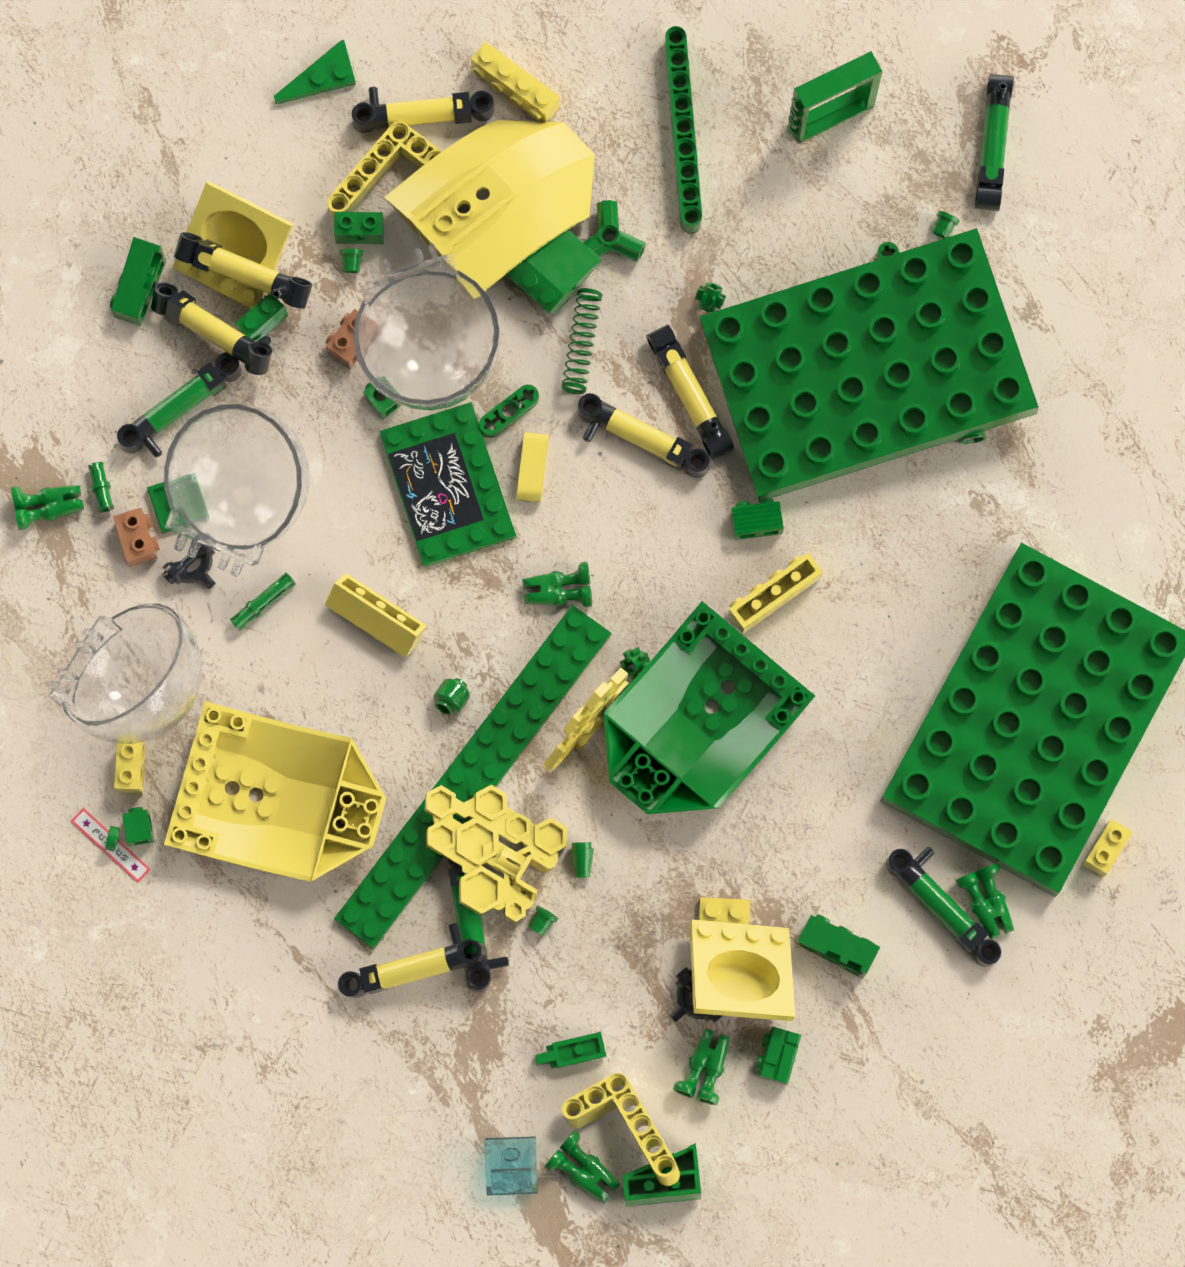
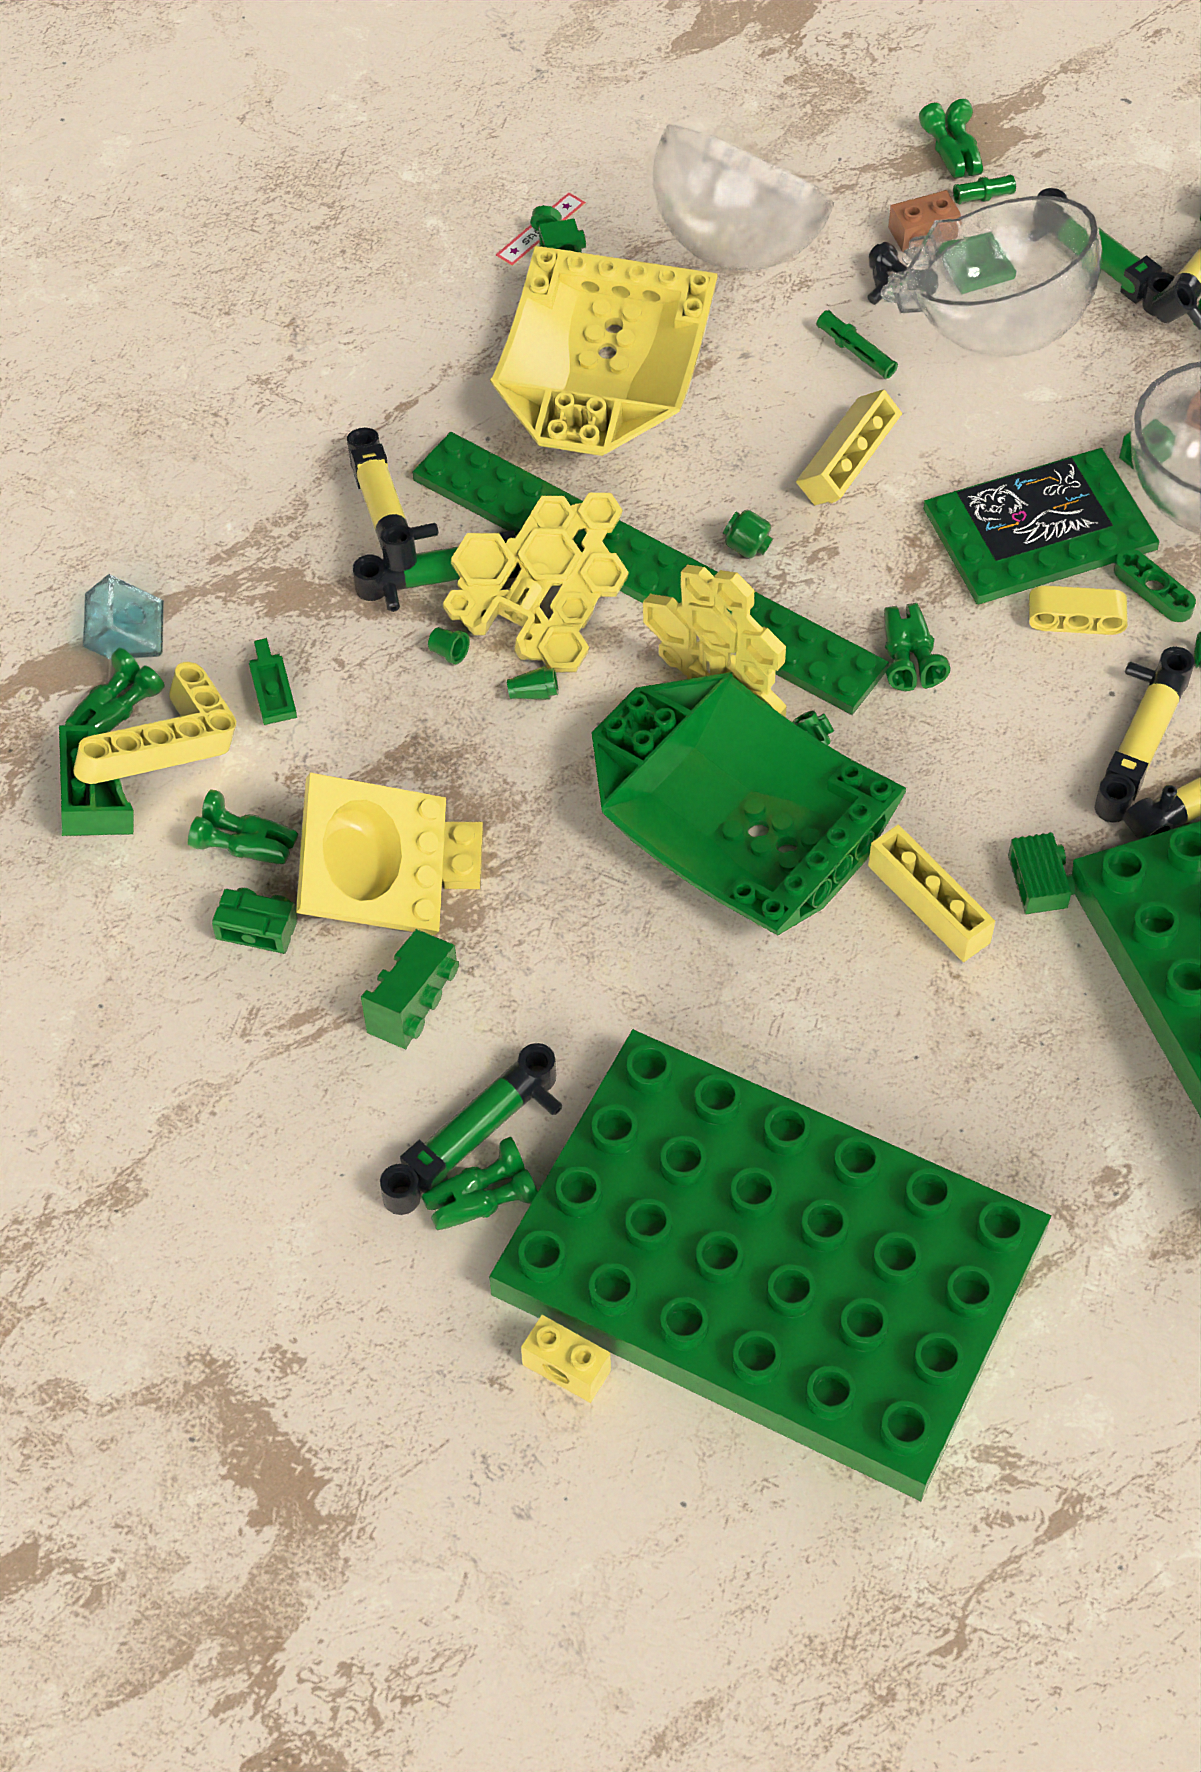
camera: 90 degrees right, 20 degrees down
(130, 768) = (634, 230): light yellow brick -> none

